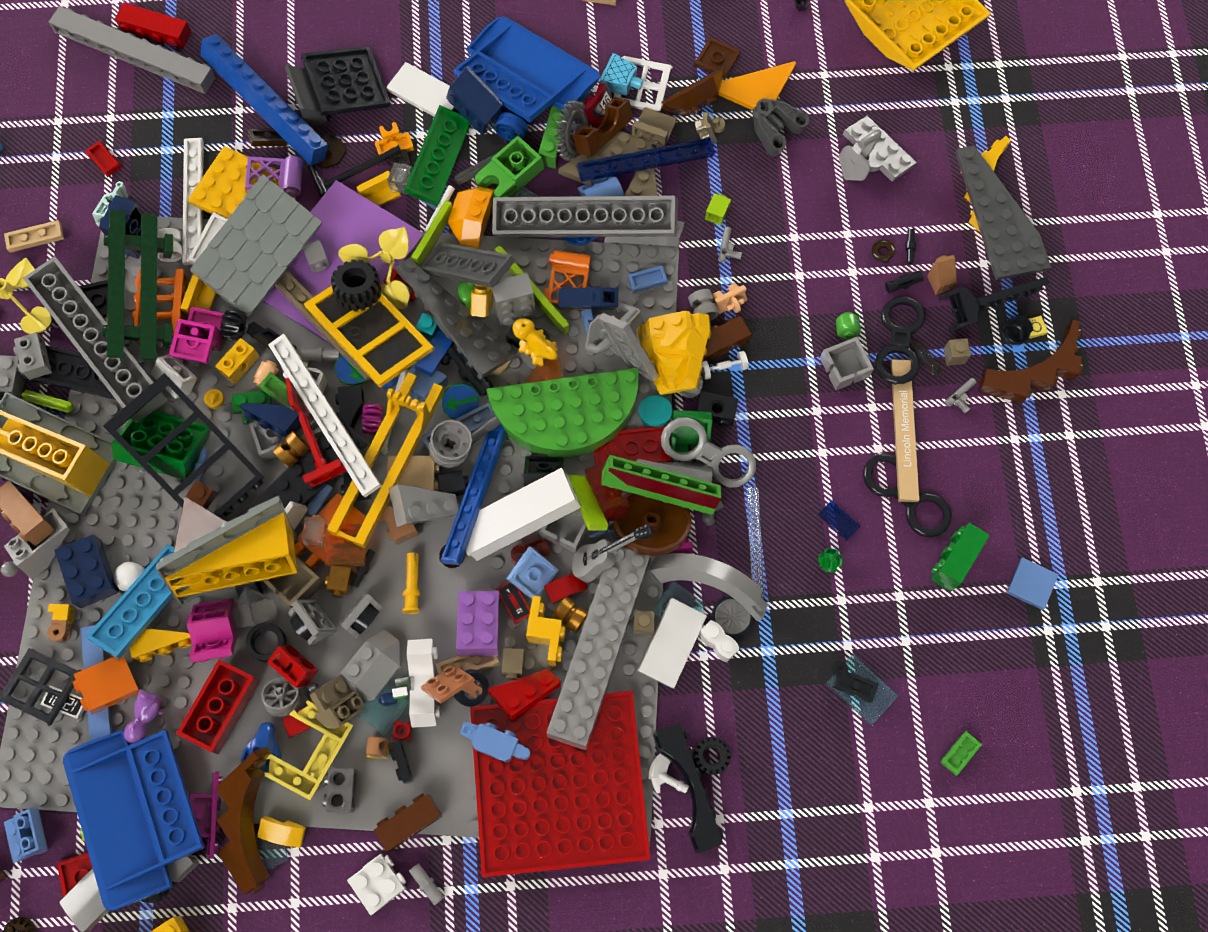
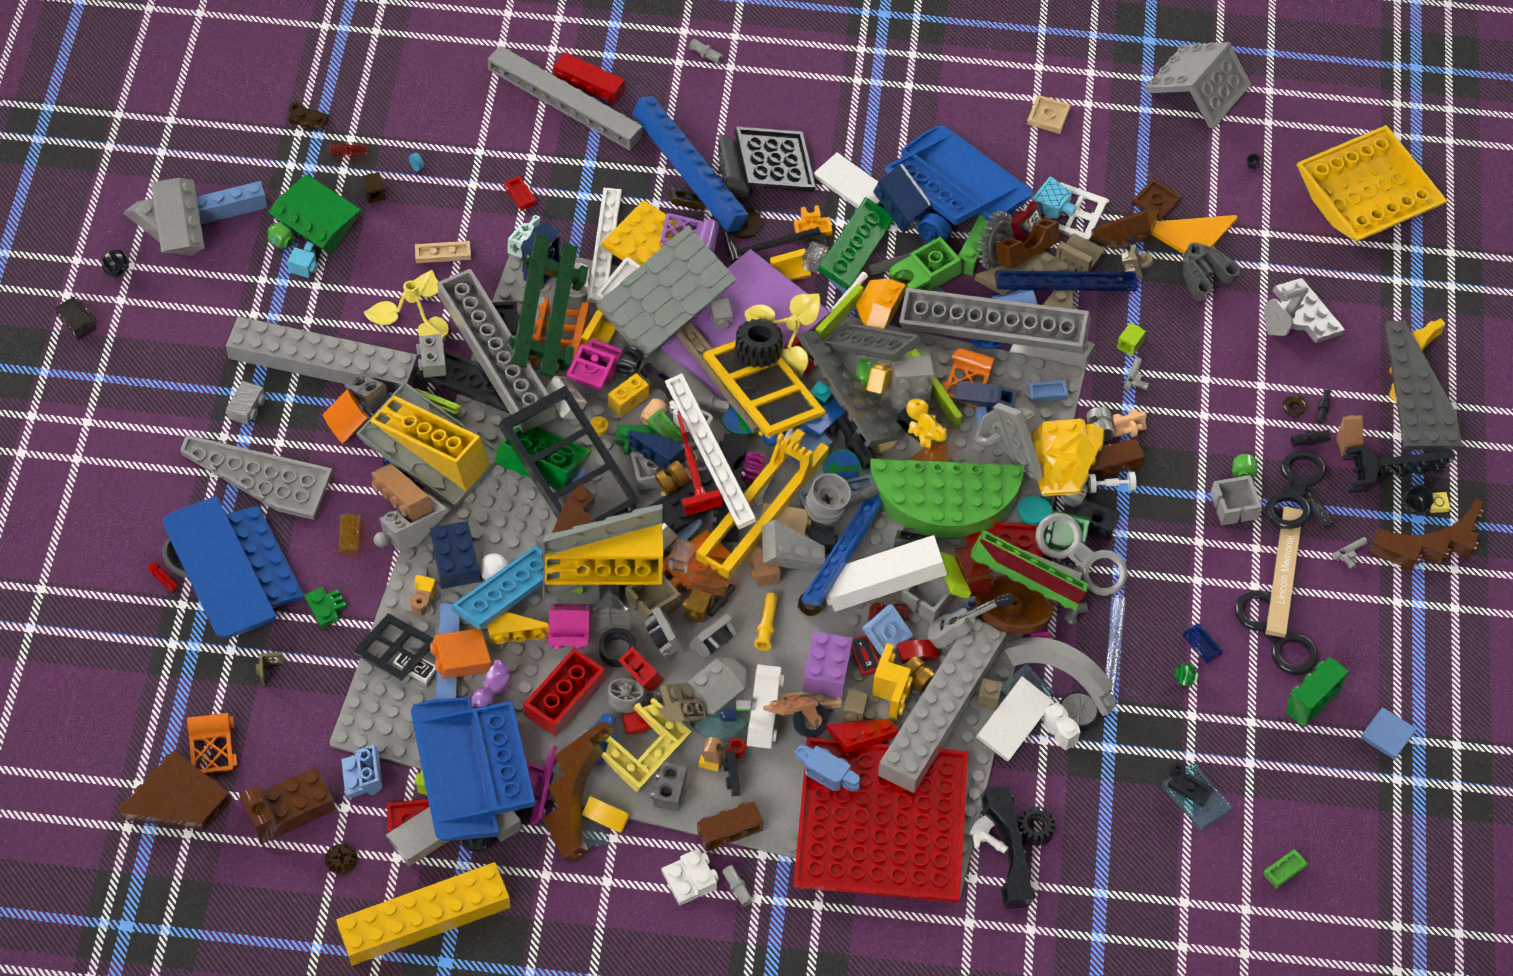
camera: 10 degrees right, 15 degrees down
(956, 352) = (1351, 510): dark tan brick -> none

